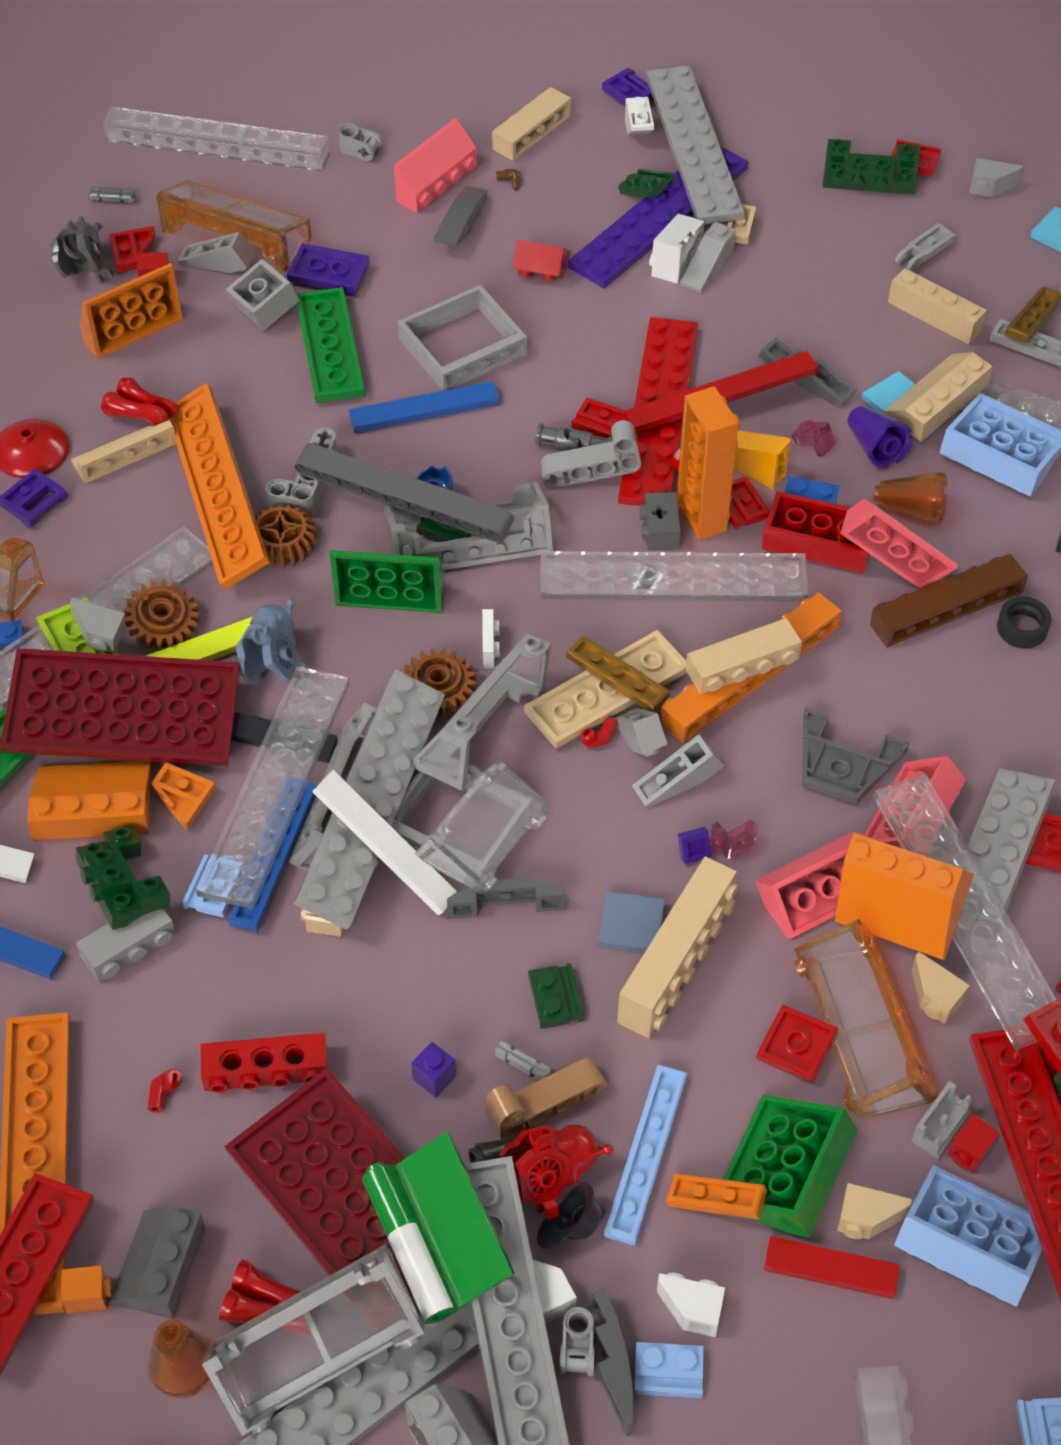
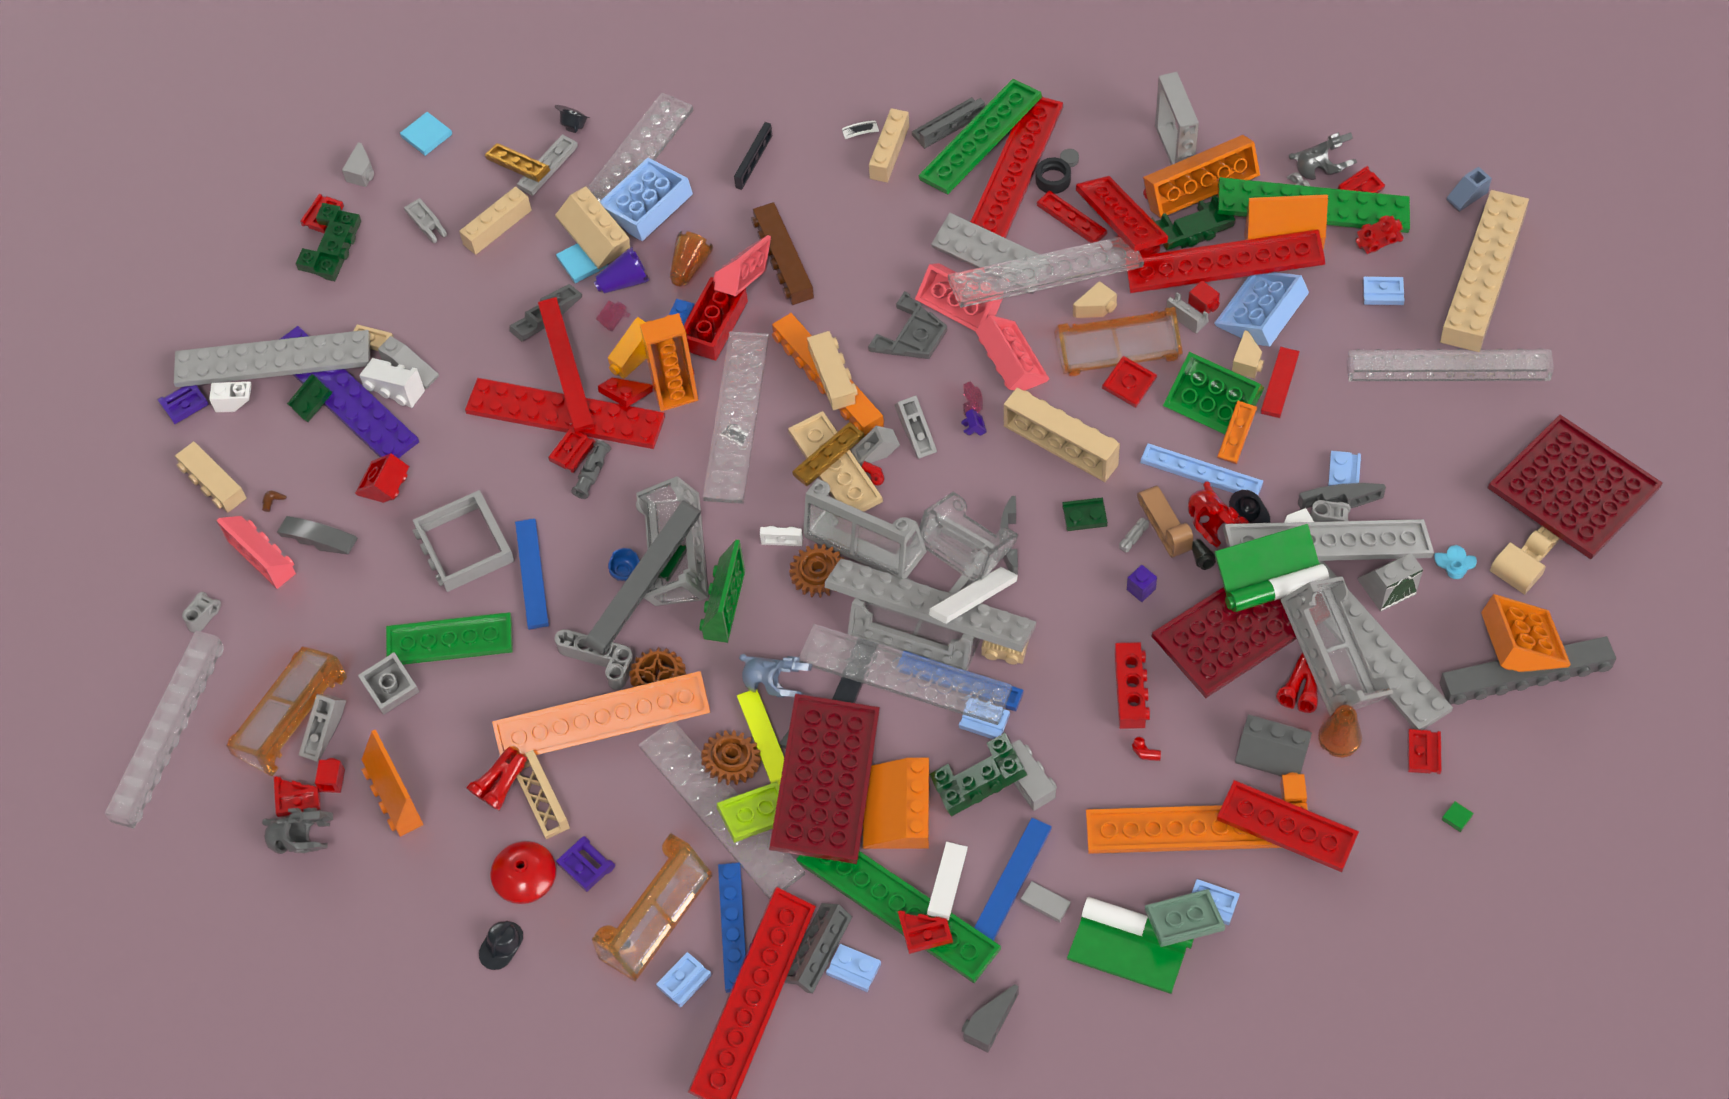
camera: 80 degrees left, 5 degrees up
(98, 624) = (751, 790): light grey slope -> none
(112, 195) = (216, 817): dark grey axle -> none
(182, 792) = (900, 742): orange wing -> none
(328, 268) = (358, 638): dark purple plate -> none
(594, 461) = (621, 453): light grey beam -> none
(630, 921) = (1031, 466): sand blue tile -> none
(661, 521) = (683, 417): dark grey brick -> none
(691, 1302) = (1306, 453): white slope -> none
(902, 895) = (1037, 302): orange slope -> none
(1029, 607) = (807, 202): black tyre -> none

